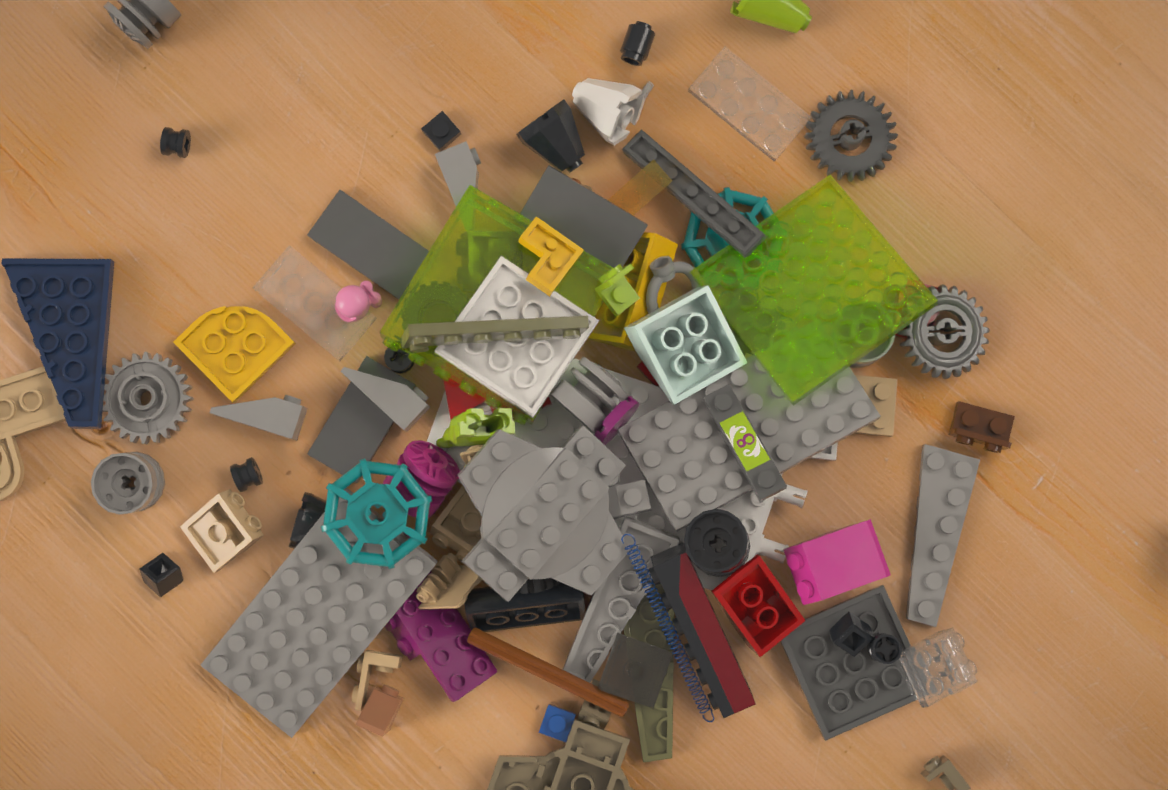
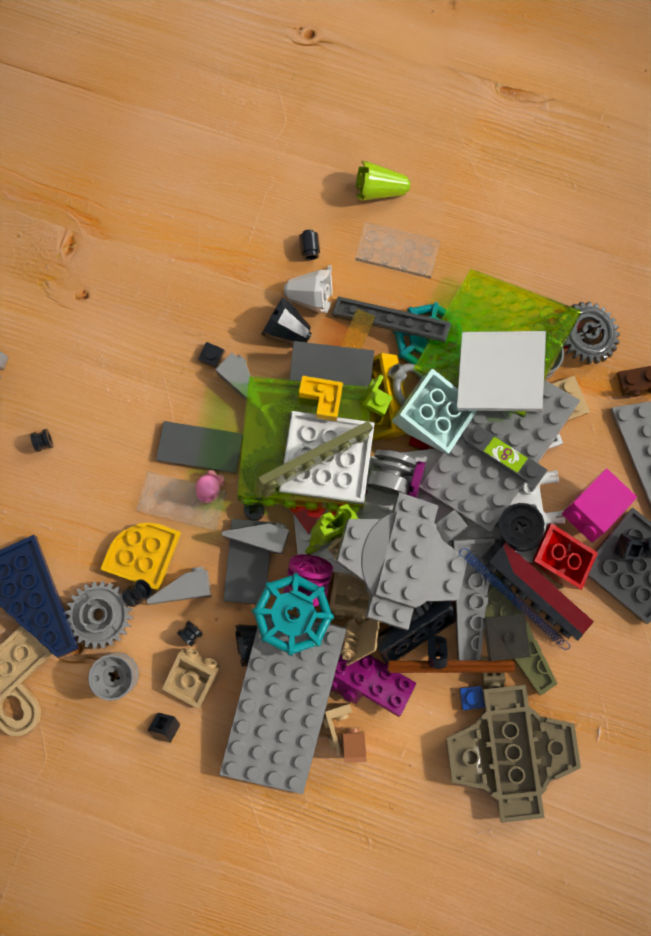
camera: 30 degrees left, 5 degrees down
(203, 393) = (136, 593): none -> black wheel
(535, 643) = (440, 651): none -> black beam
(795, 331) = (502, 371): none -> white tile
(876, 127) = (475, 229): dark grey gear -> none

